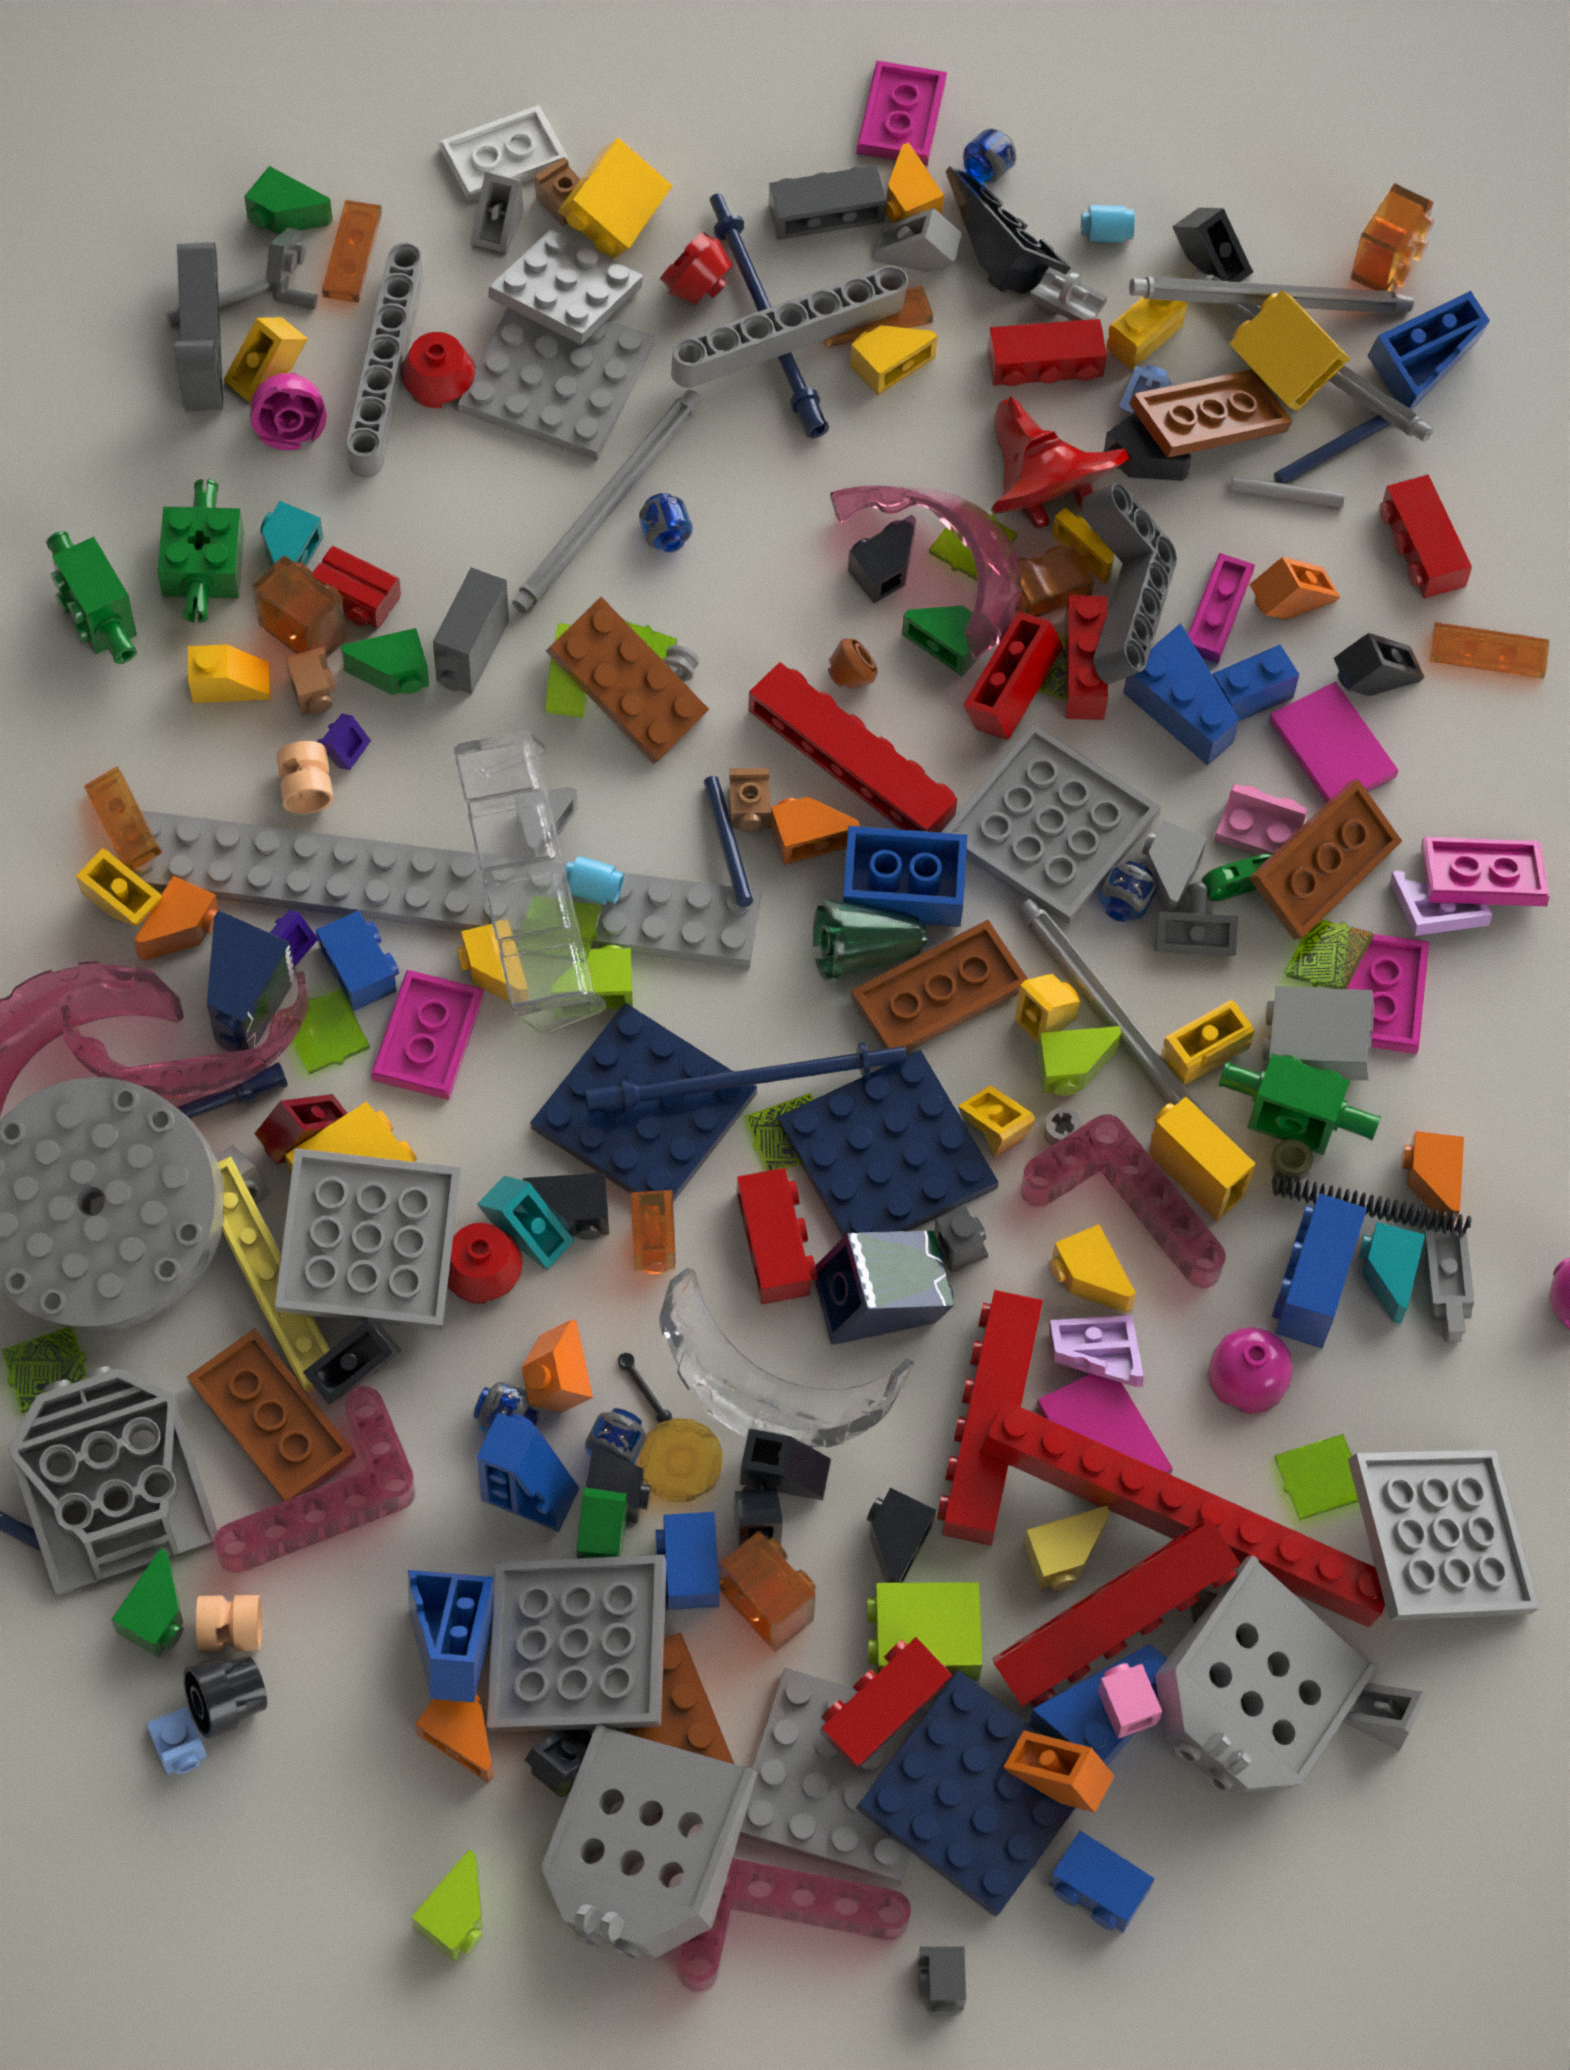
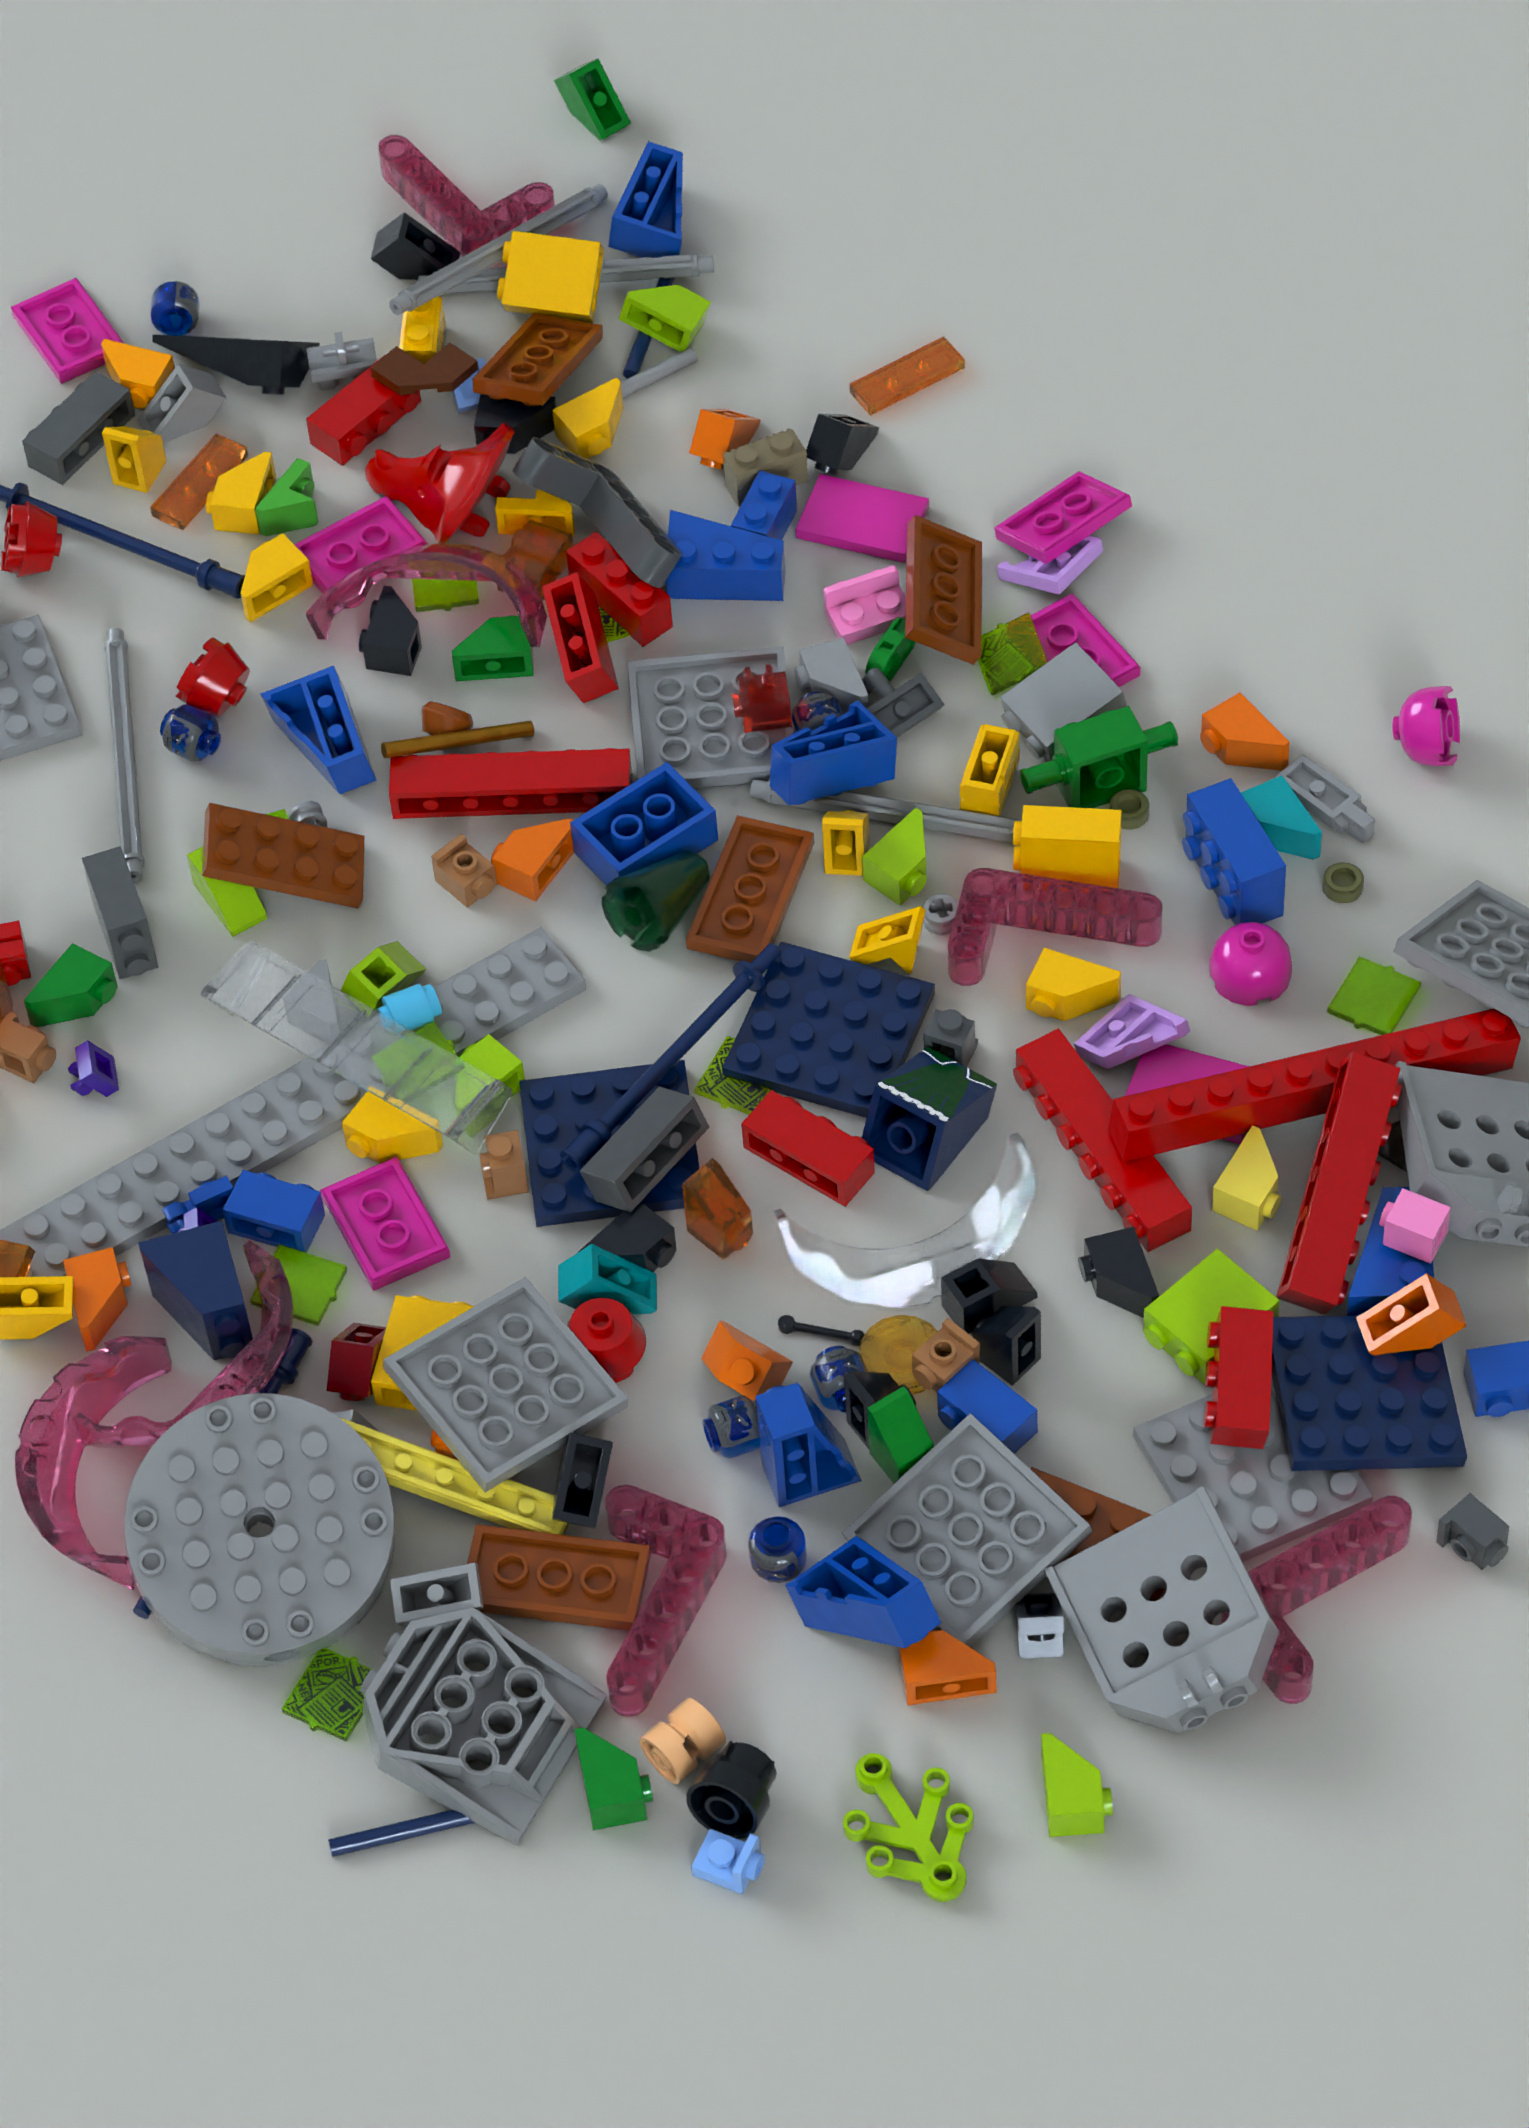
camera: 35 degrees left, 10 degrees down
(164, 1360) = (436, 1593): none -> light grey slope
(304, 777) = (91, 1116): light nougat wheel -> none
(315, 911) = (208, 1197): none -> blue plate
(321, 1838) = (911, 1832): none -> lime plant
(435, 1535) = (777, 1549): none -> clear blue head
(547, 1061) = (503, 1165): none -> medium nougat brick
(609, 836) = (382, 973): none -> lime slope
(644, 1138) = (644, 1149): none -> dark grey brick
(708, 1500) = (954, 1345): none -> medium nougat brick
(718, 493) = (214, 679): none -> red cone
(728, 841) = (480, 911): dark blue bar -> none
(760, 598) = (323, 727): none -> blue wedge
(768, 1590) = (1072, 1378): clear orange brick -> none
(840, 254) = (133, 456): none -> yellow slope
(845, 308) = (147, 526): light grey beam -> none
(845, 440) = (274, 576): none -> yellow slope
(845, 686) = (457, 739): none -> pearl gold bar
(912, 385) = (289, 502): none -> bright green slope
(937, 461) = (358, 542): none -> dark pink tile
(1091, 842) = (762, 700): none -> clear red brick
(1096, 933) = (833, 758): none -> blue wedge
(1108, 223) = (317, 292): medium azure brick -> none
(1122, 368) = (442, 372): none -> reddish brown tile
(1207, 496) = (590, 420): none -> yellow slope
(1220, 606) = (676, 481): dark pink tile -> none
(1273, 232) = (447, 206): none -> clear pink beam
(1306, 642) = (776, 455): none -> dark tan brick
(1349, 452) = (666, 314): none -> lime slope
(1393, 240) = (551, 148): clear orange brick -> none
(1393, 1361) = (1343, 882): none -> olive tile
(1401, 1215) = (1235, 776): black piece -> none
(1425, 536) = (782, 332): red brick -> none
(1477, 218) = (593, 99): none -> green slope

